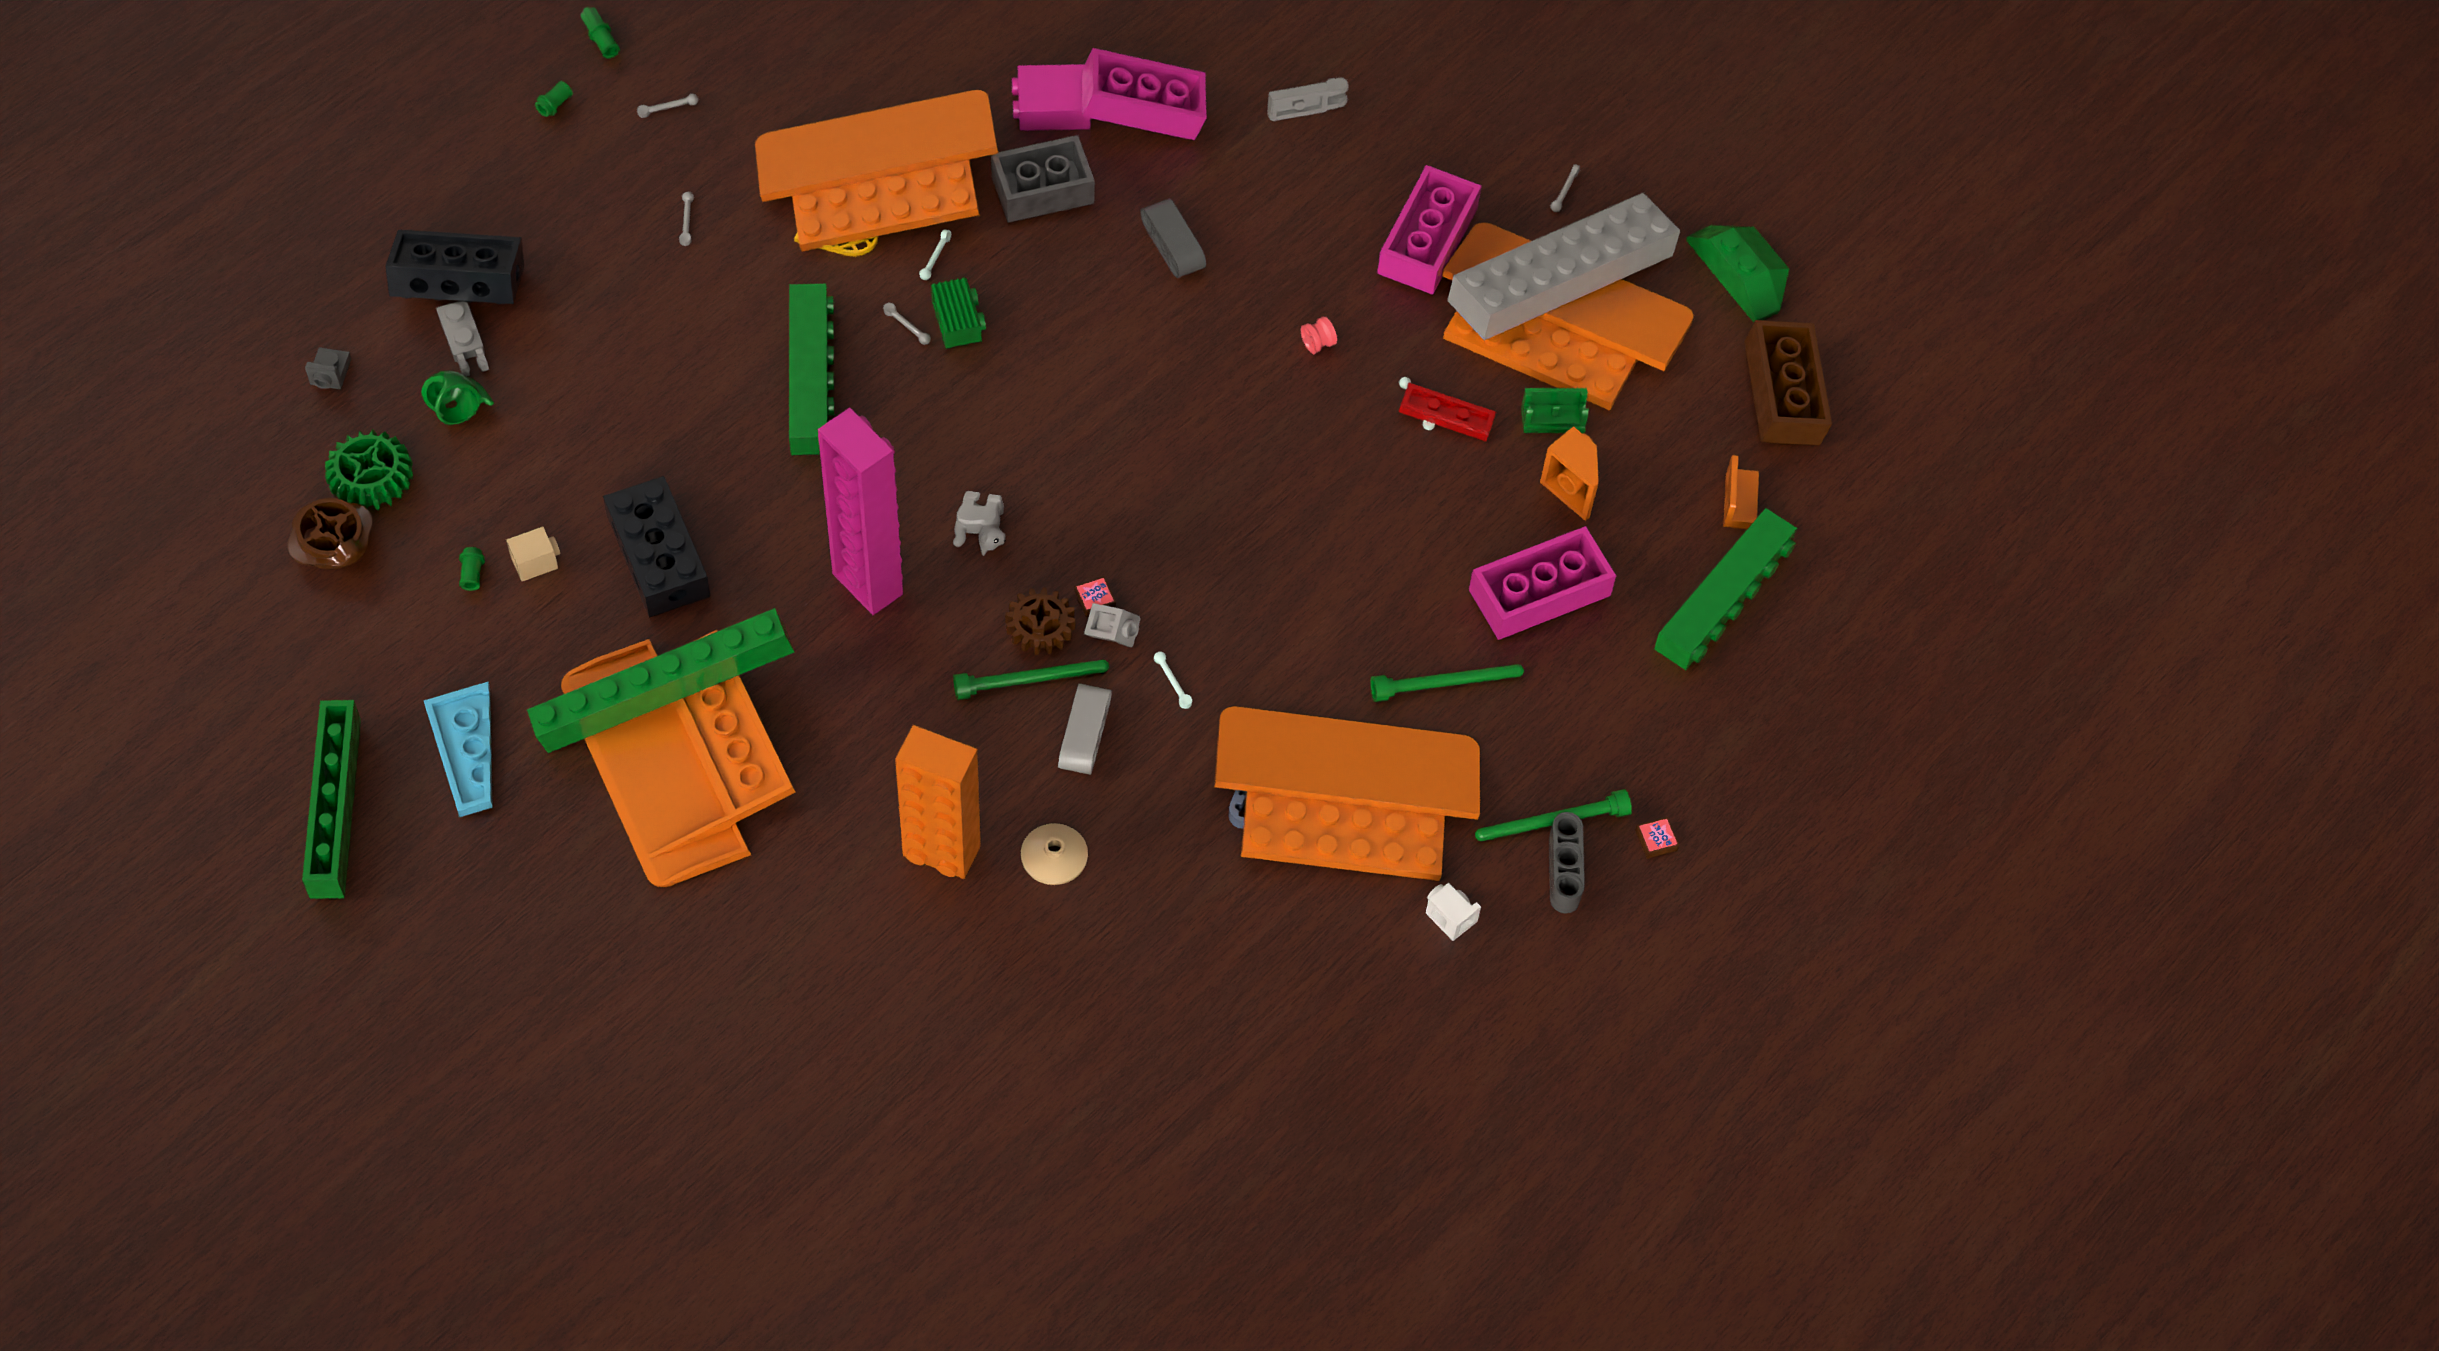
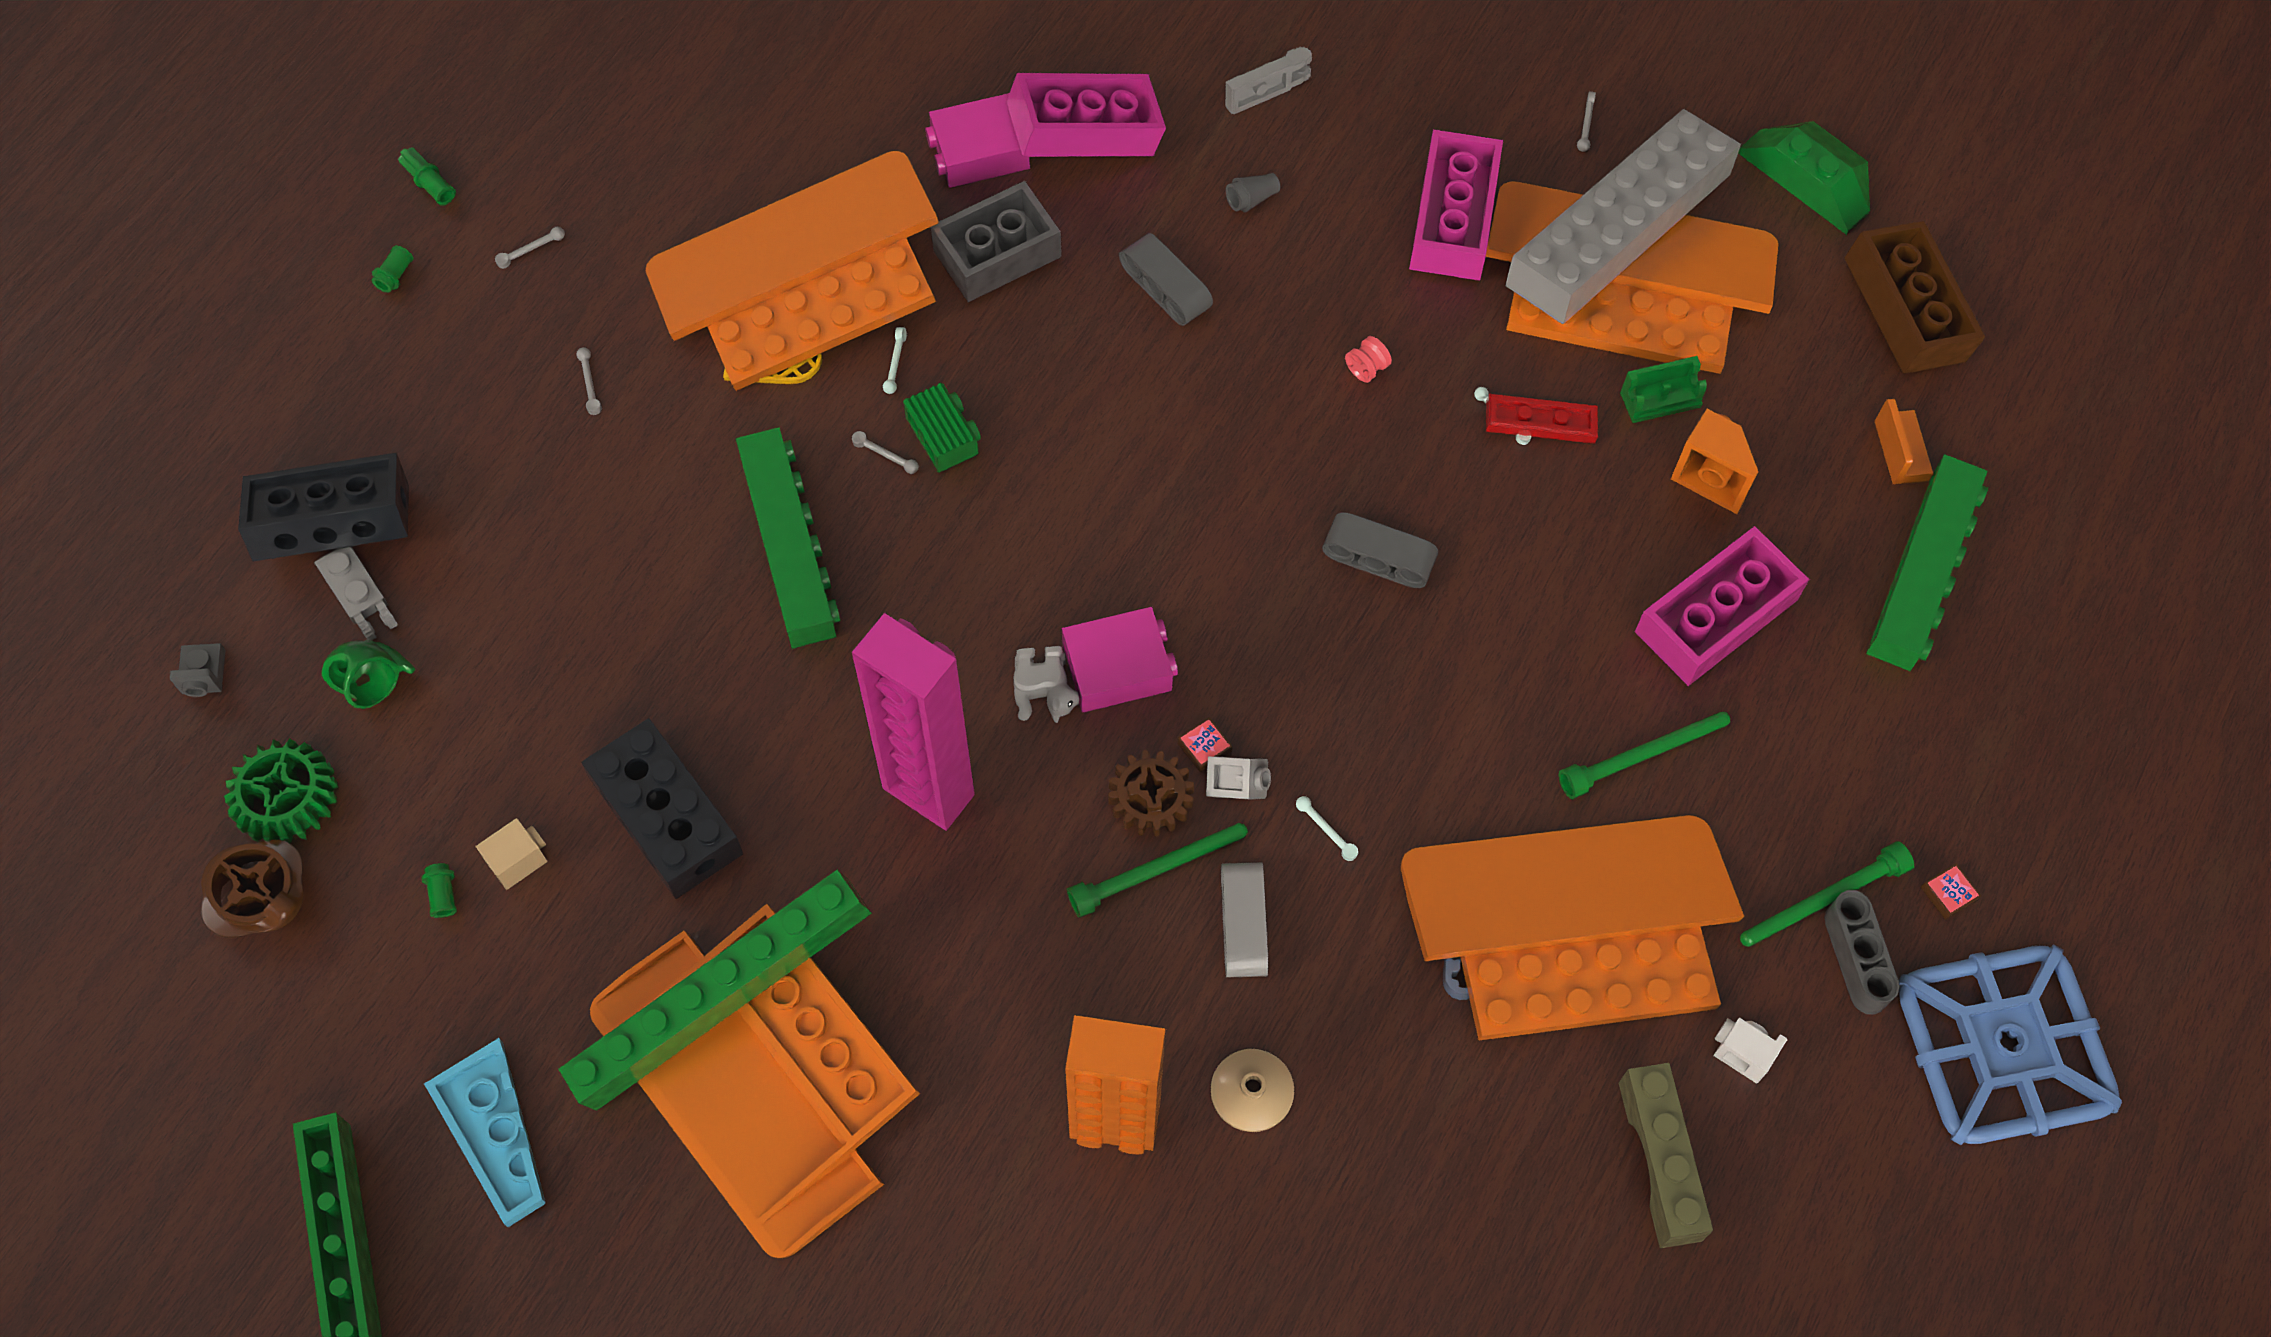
camera: 10 degrees left, 5 degrees up
(1045, 517) = (1118, 659): none -> dark pink brick
(1264, 184) = (1250, 191): none -> dark grey cone
(1281, 482) = (1380, 550): none -> dark grey beam
(1358, 969) = (1676, 1189): none -> olive arch
(1646, 970) = (1996, 1067): none -> medium blue plate

